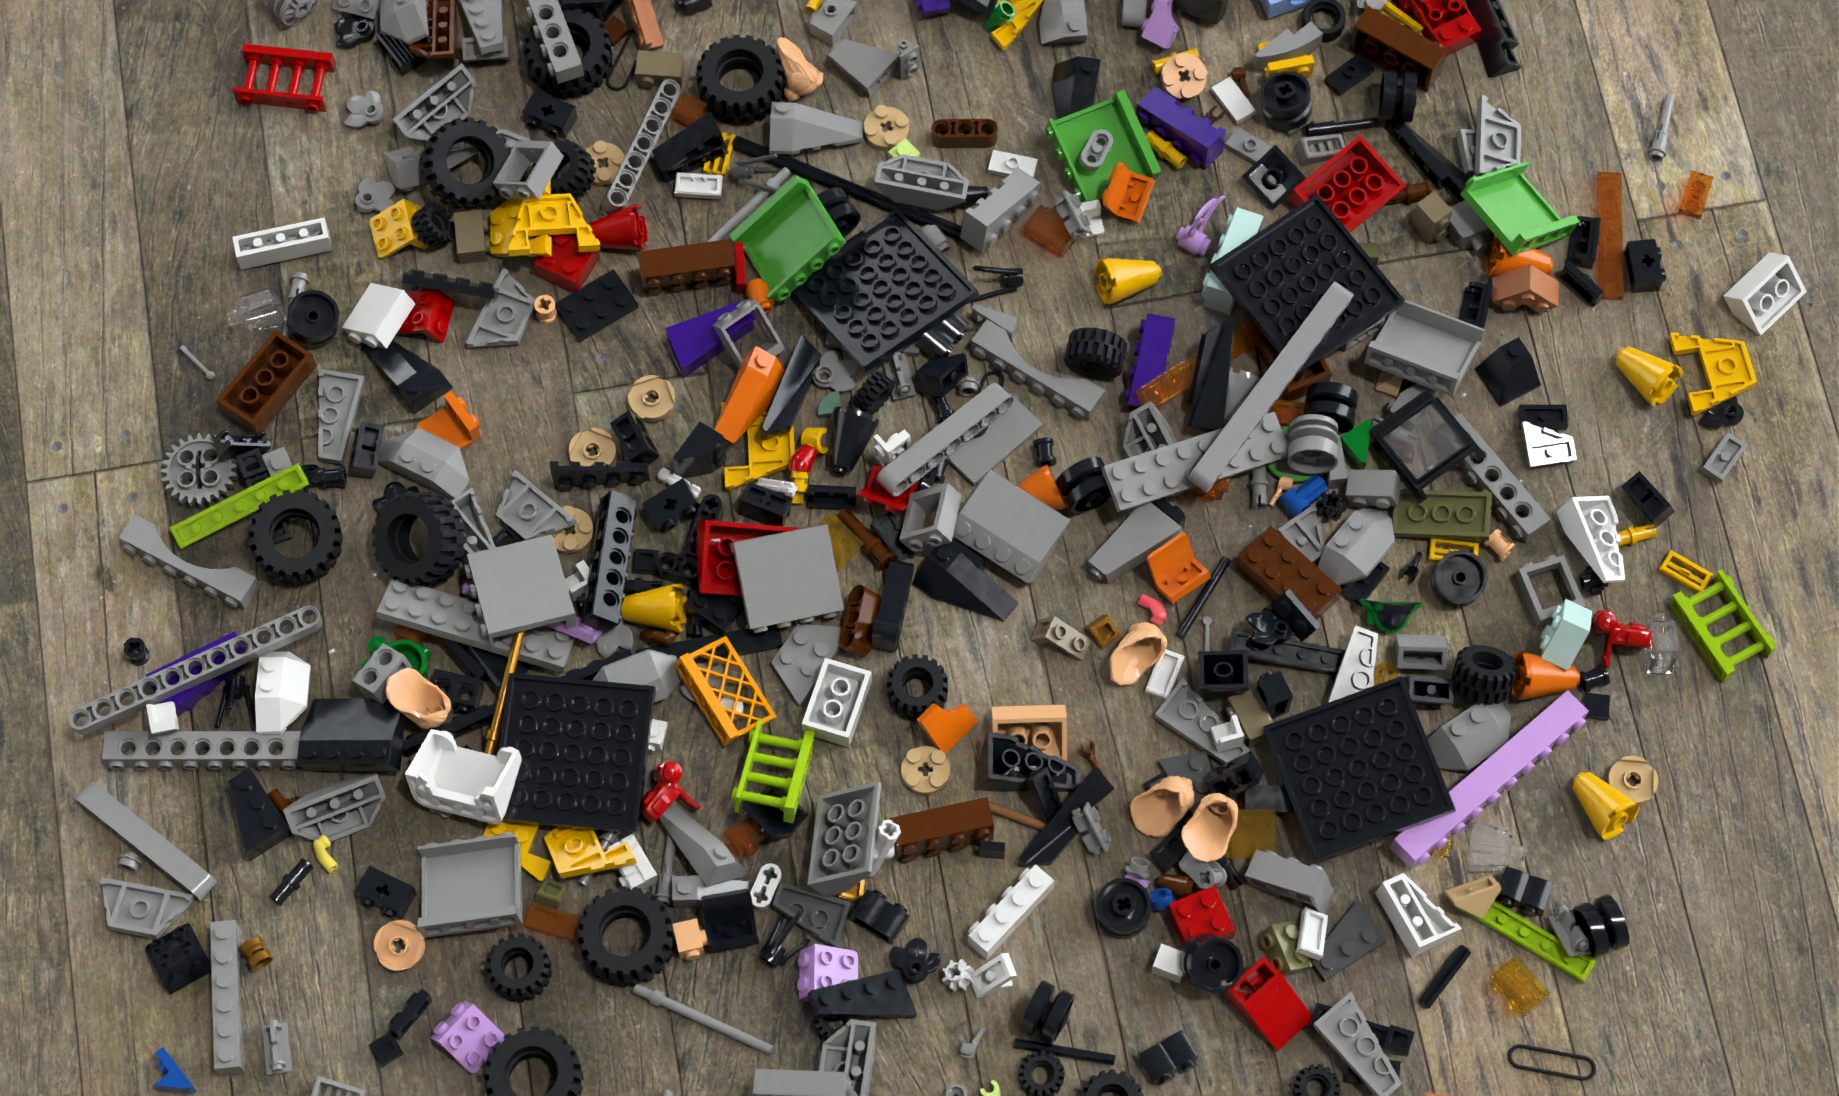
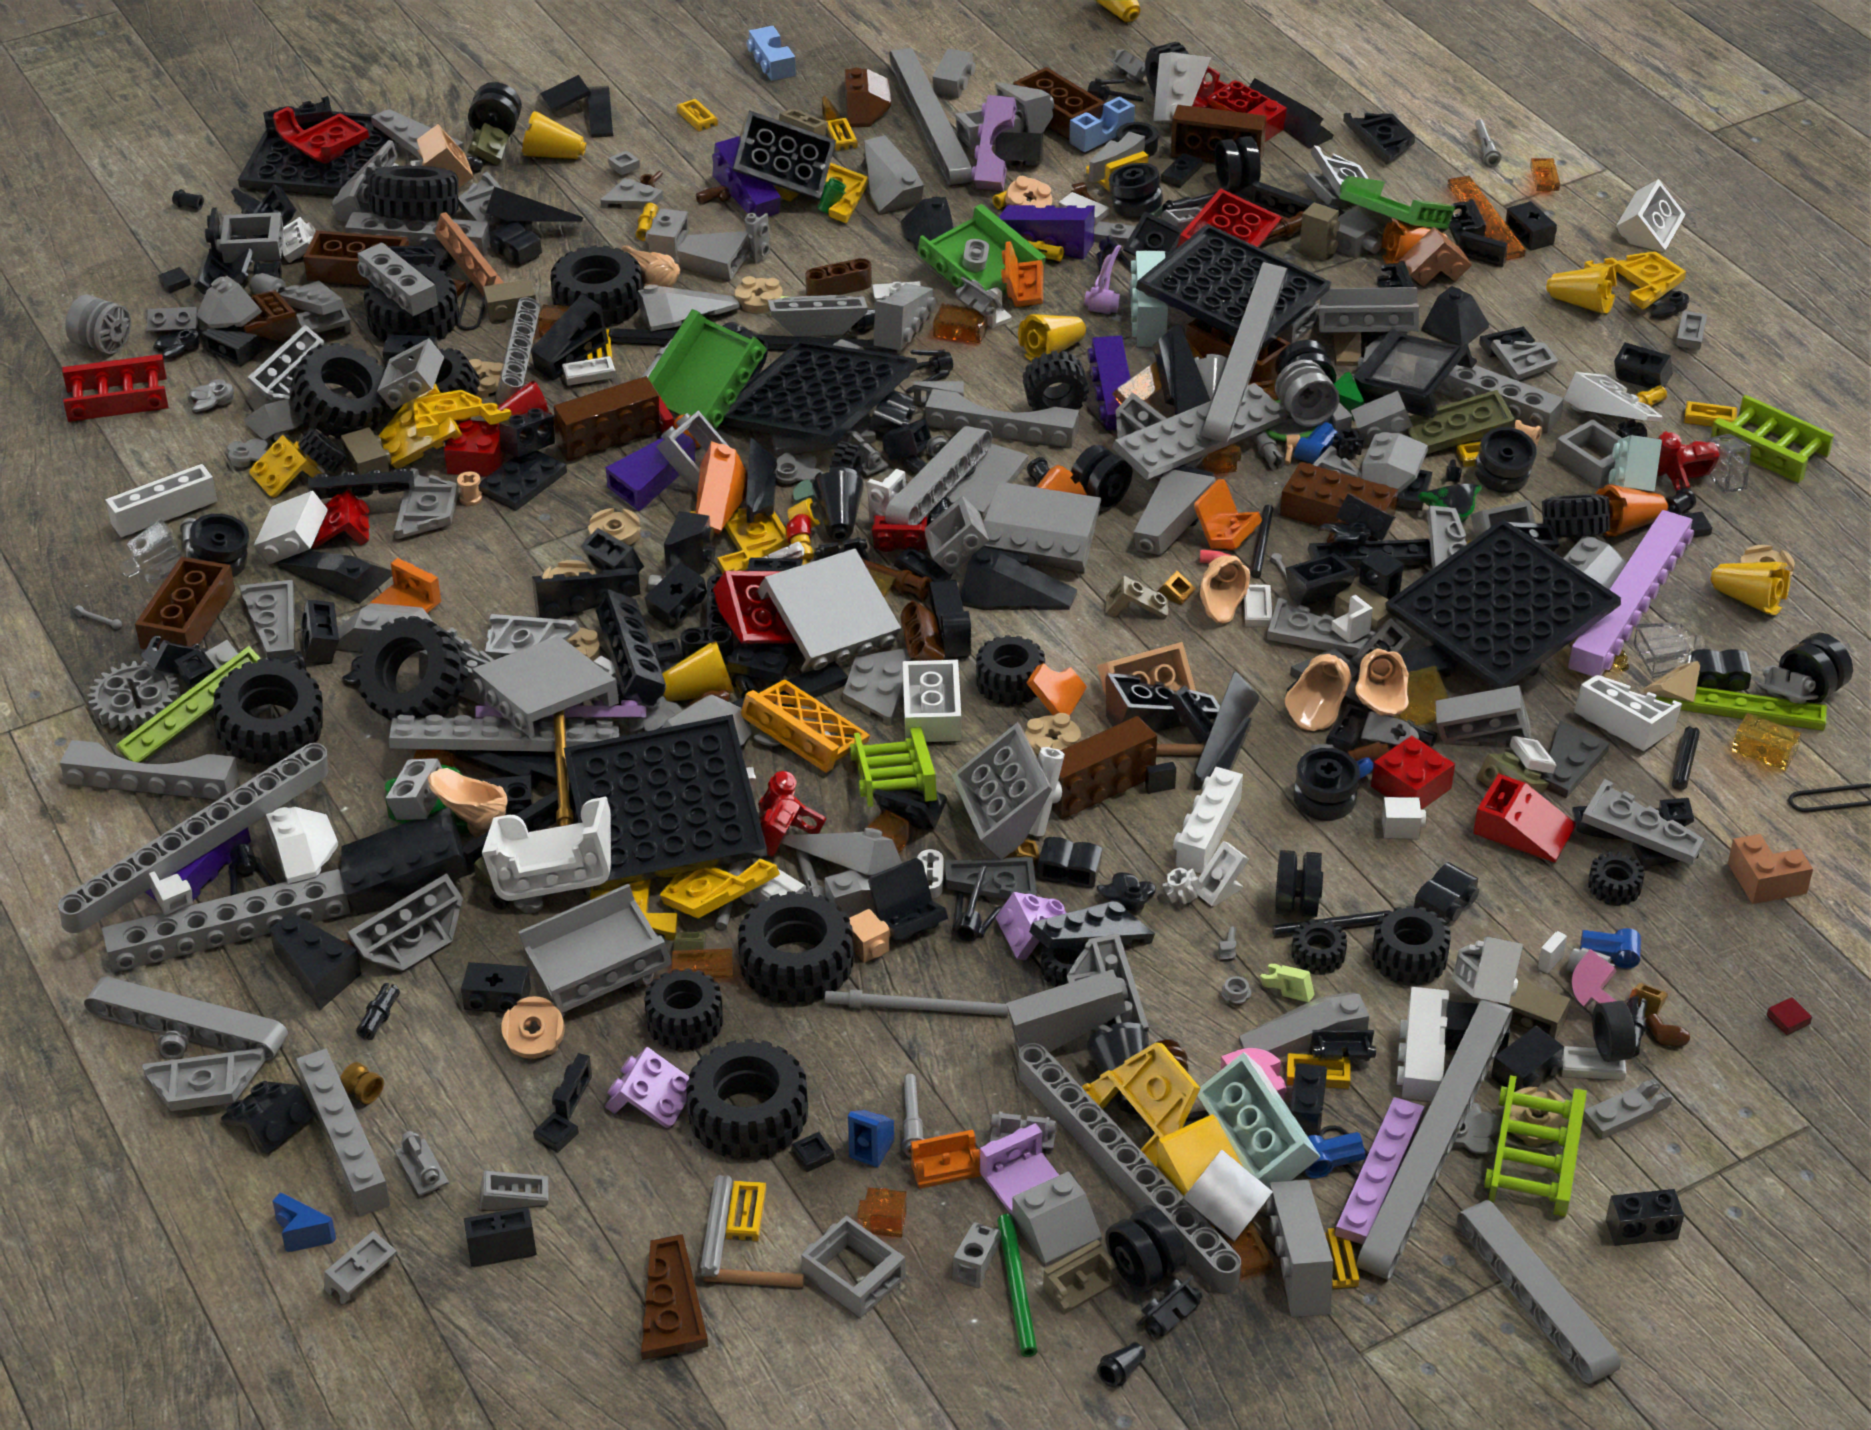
camera: 20 degrees left, 25 degrees down
(136, 658) = (112, 852): black bush -> none
(322, 855) = (404, 977): light yellow arm -> none
(611, 264) = (527, 432): none -> black brick
(743, 172) = (631, 349): dark grey plant -> none
(1090, 754) = (1215, 681): reddish brown hand -> none
(1097, 837) = (1265, 736): light grey hinge -> none
(1211, 962) = (1448, 789): black wheel -> none
(1230, 173) = (1107, 247): none -> black plant
(1566, 85) = (1382, 133): none -> black wing

